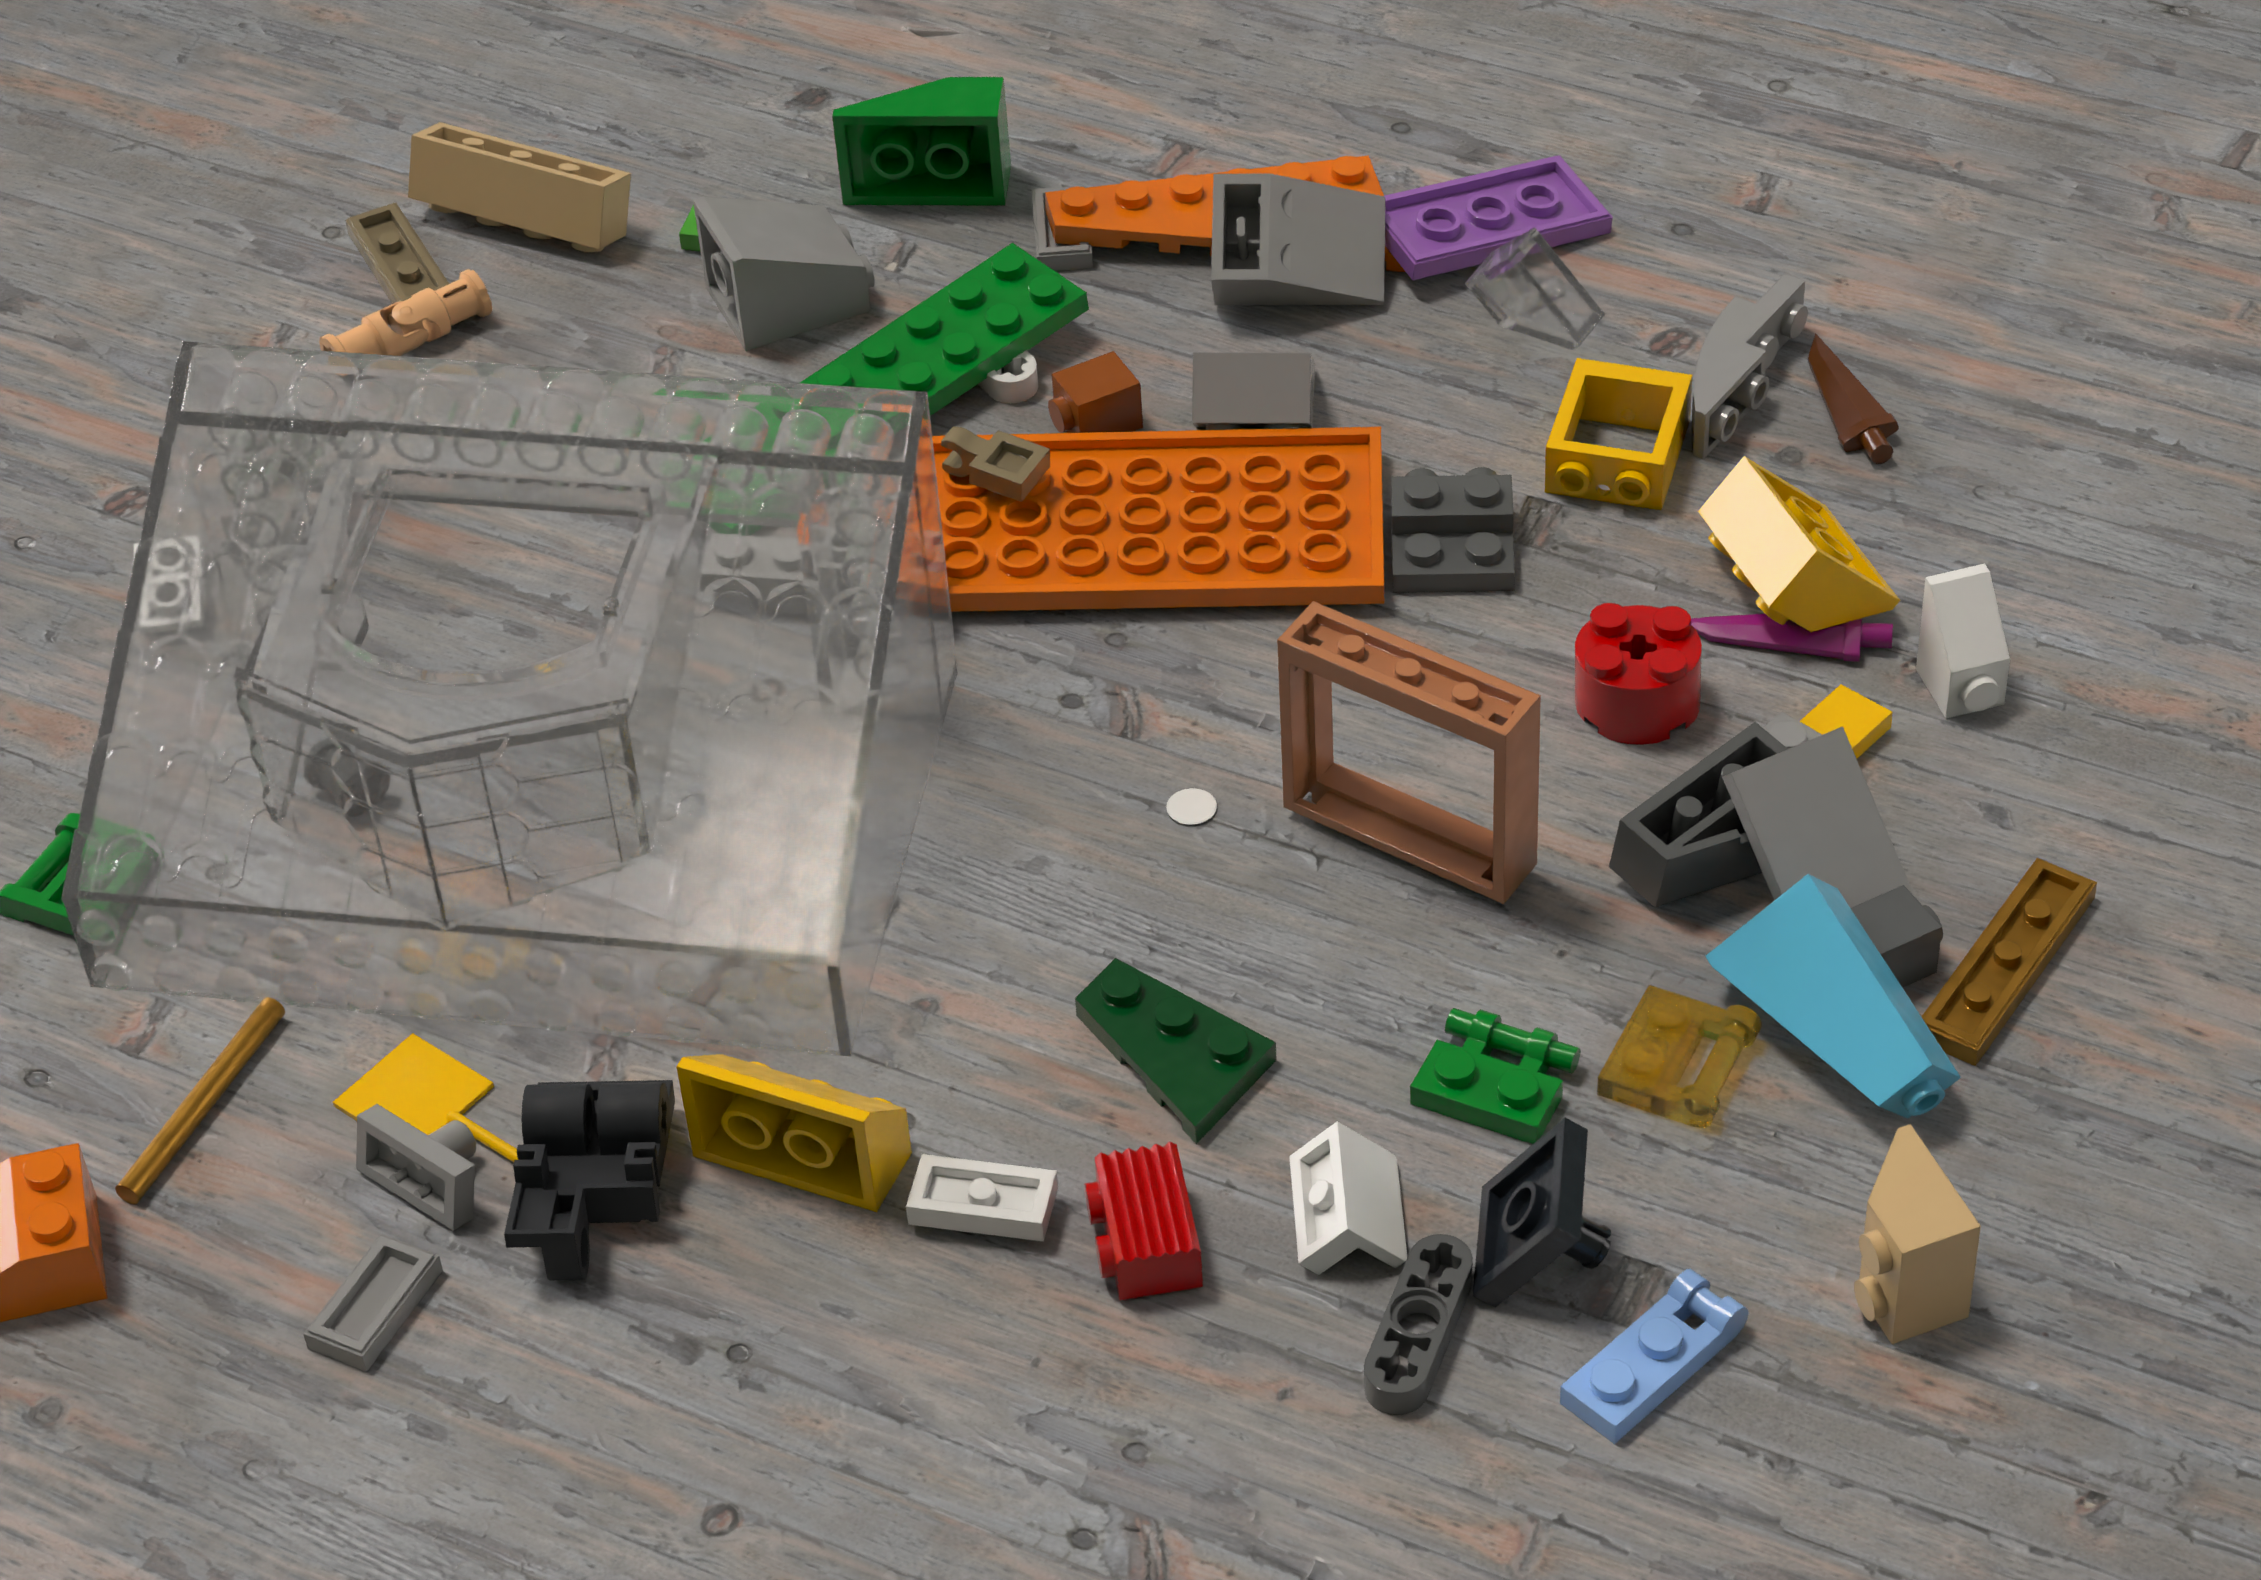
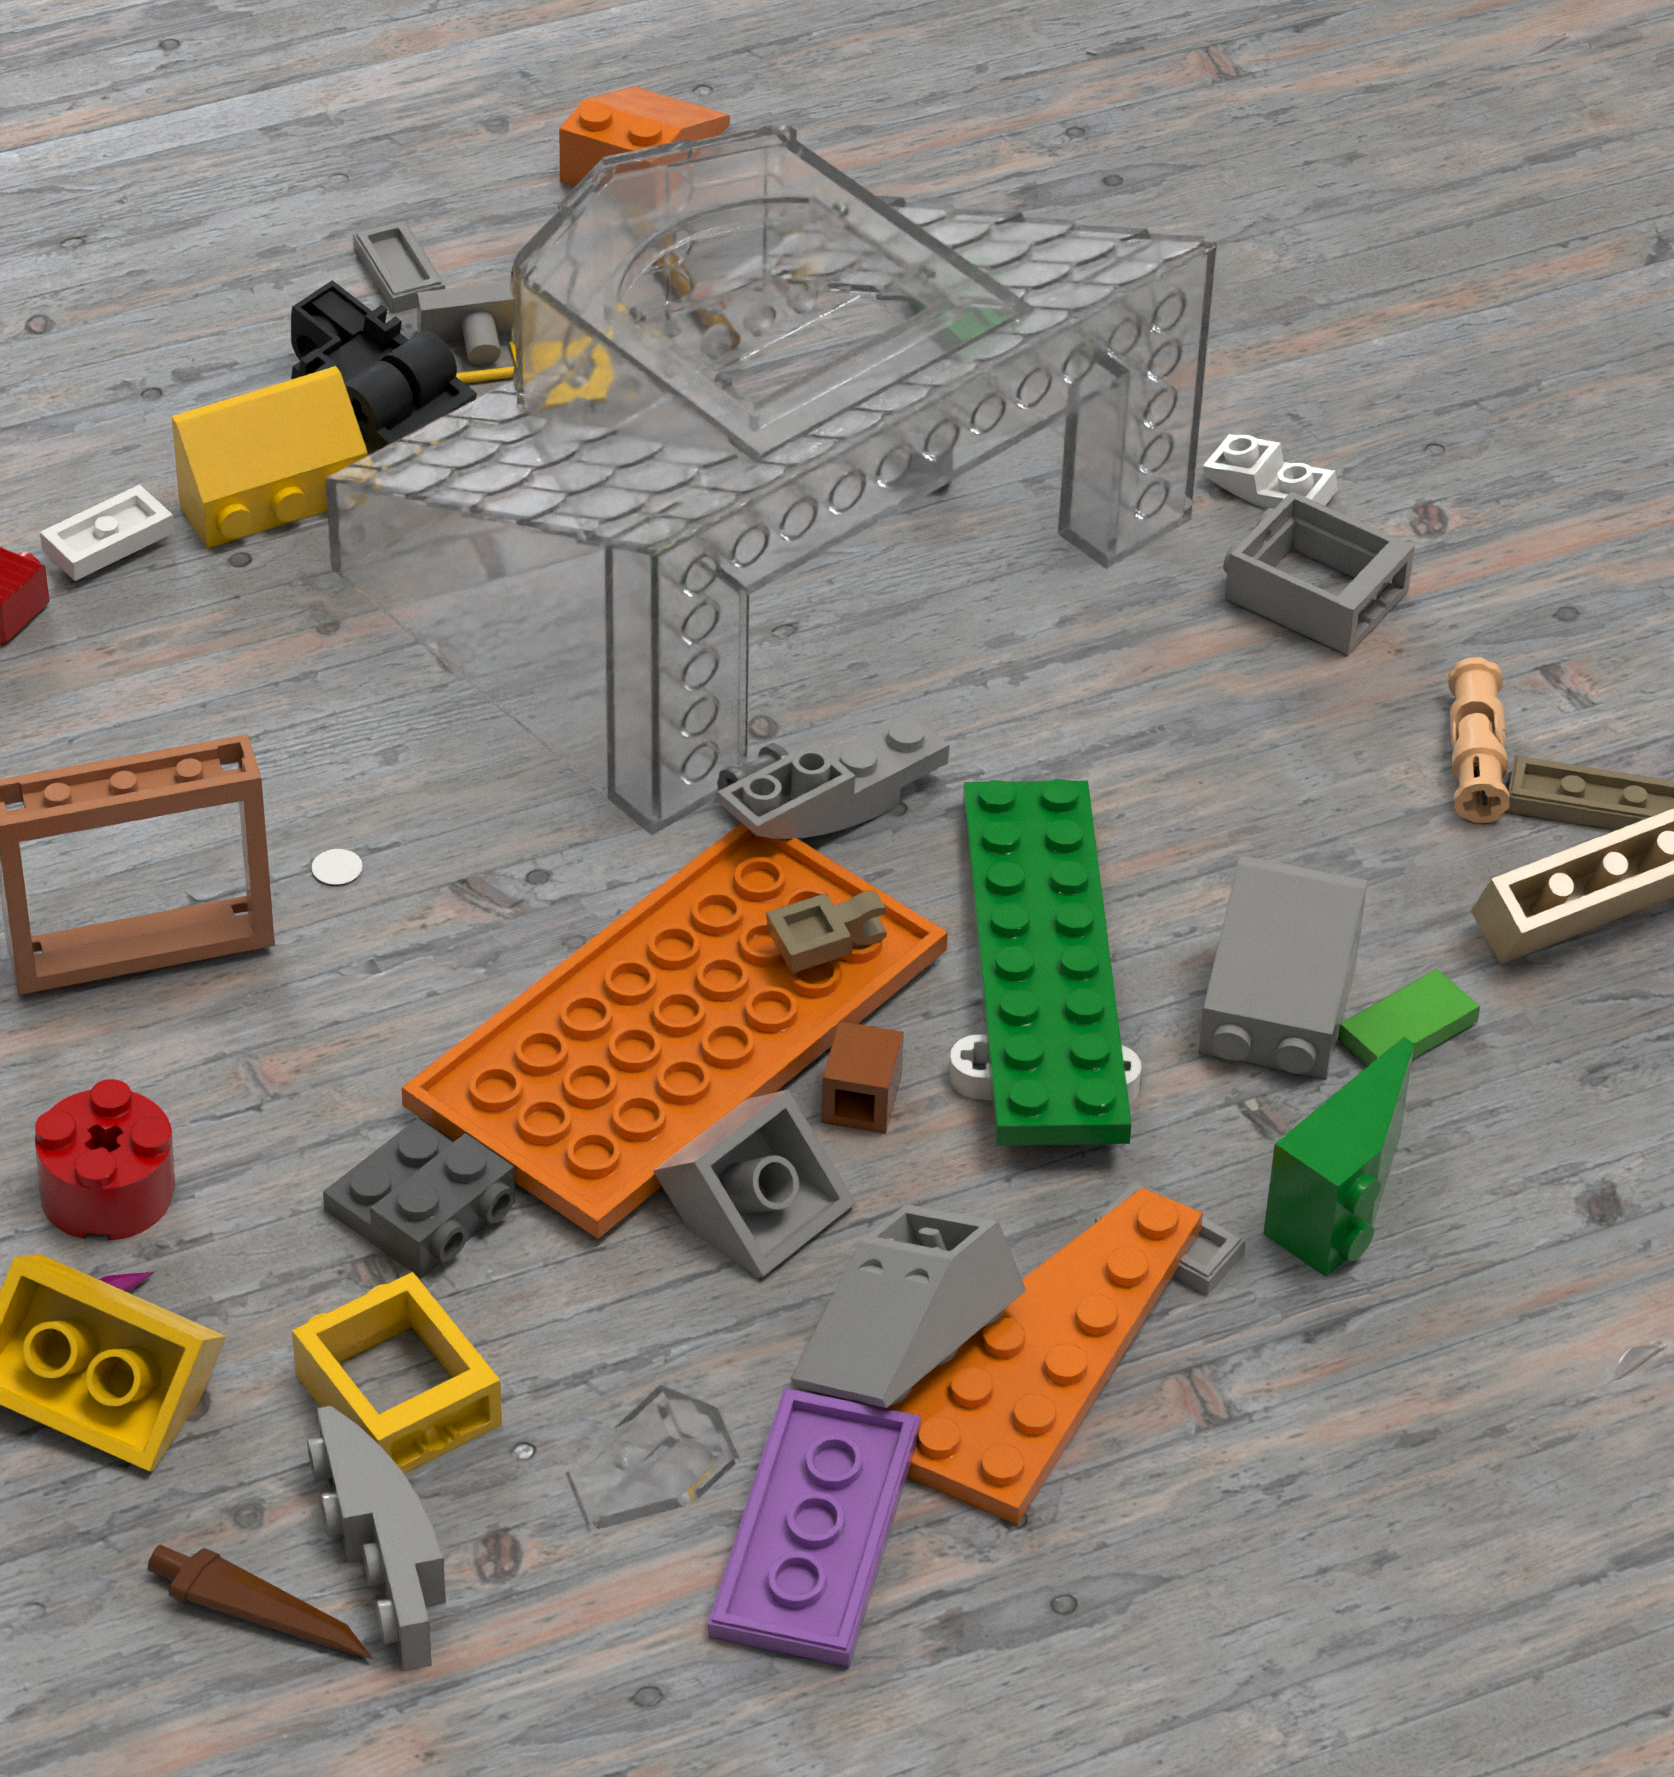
camera: 125 degrees right, 0 degrees up
(1176, 1044) = (120, 705): dark green wing -> none

